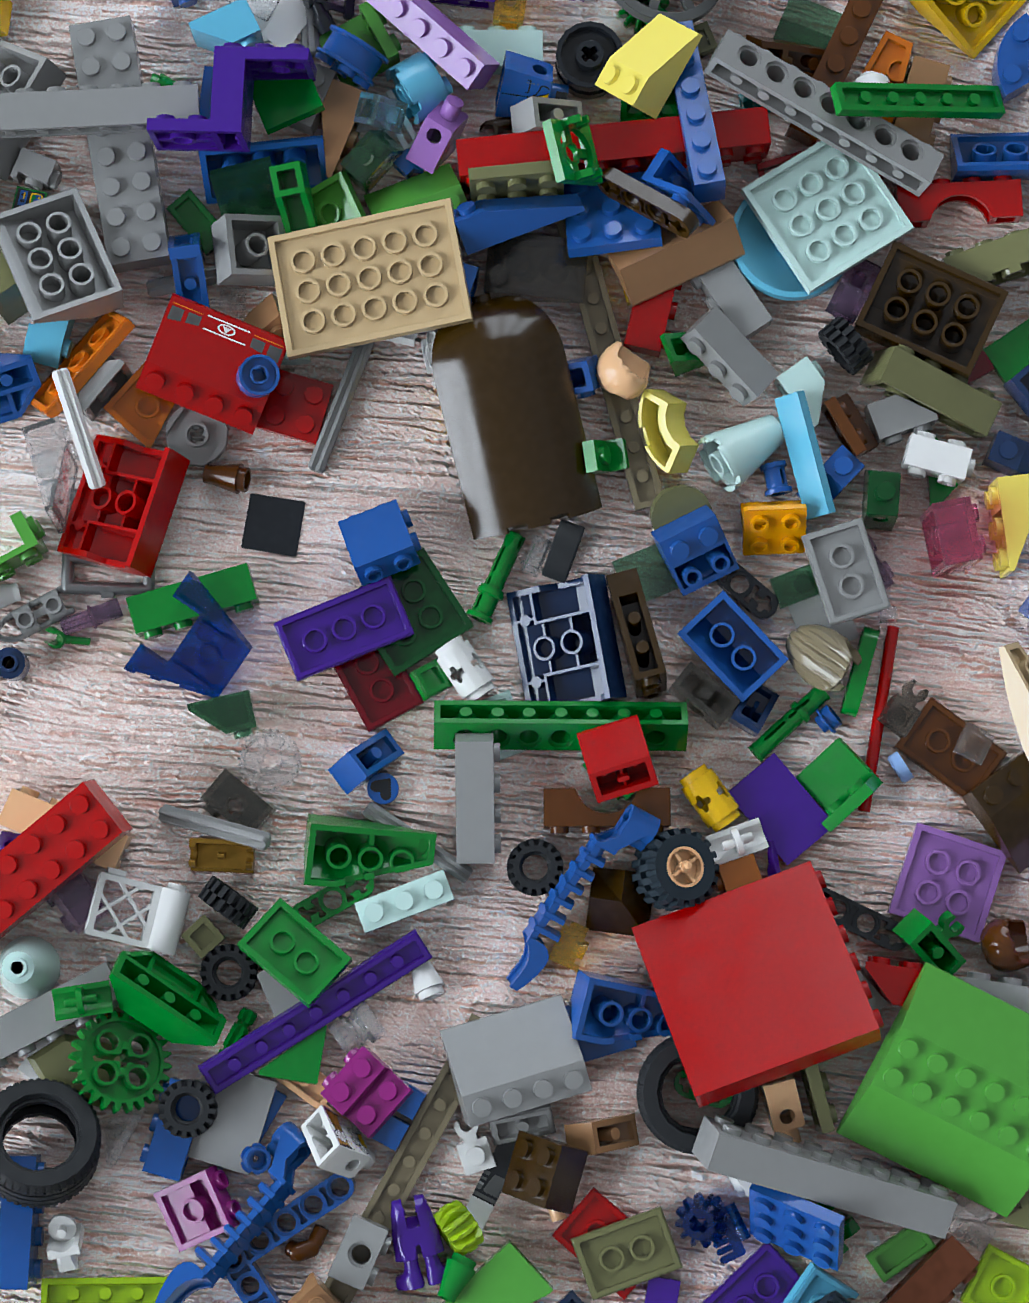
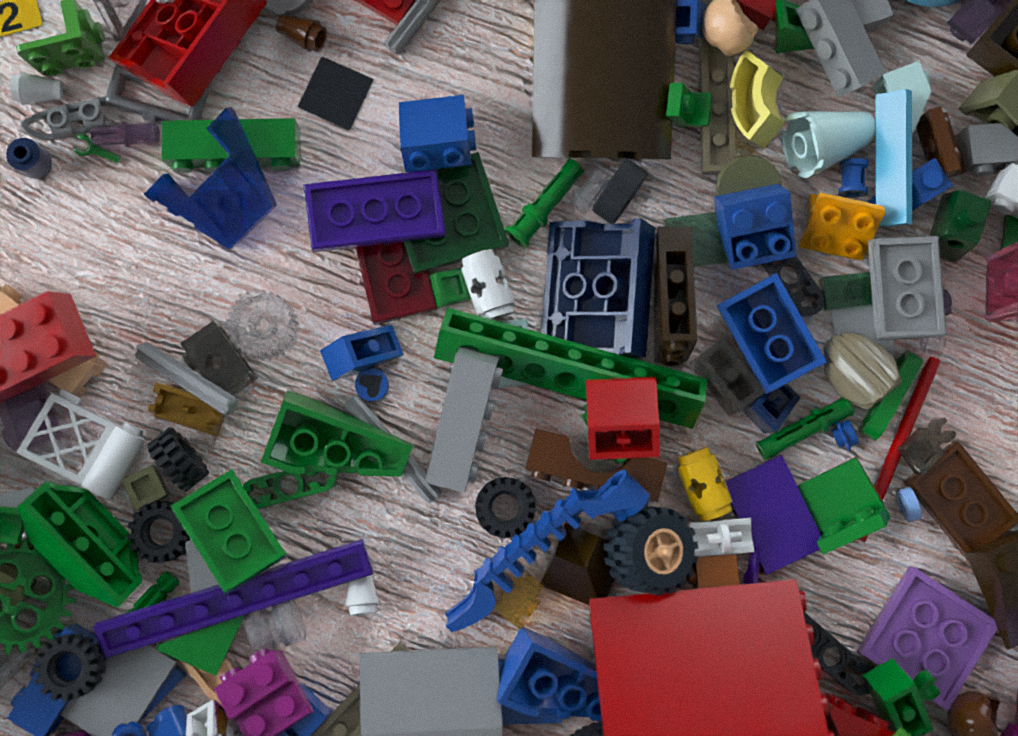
camera: 10 degrees right, 0 degrees up
(229, 713) = (235, 266): clear green slope -> none
(404, 901) = (360, 507): light aqua brick -> none
(845, 345) = (960, 61): black tyre -> none
(973, 743) = (991, 500): clear slope -> none

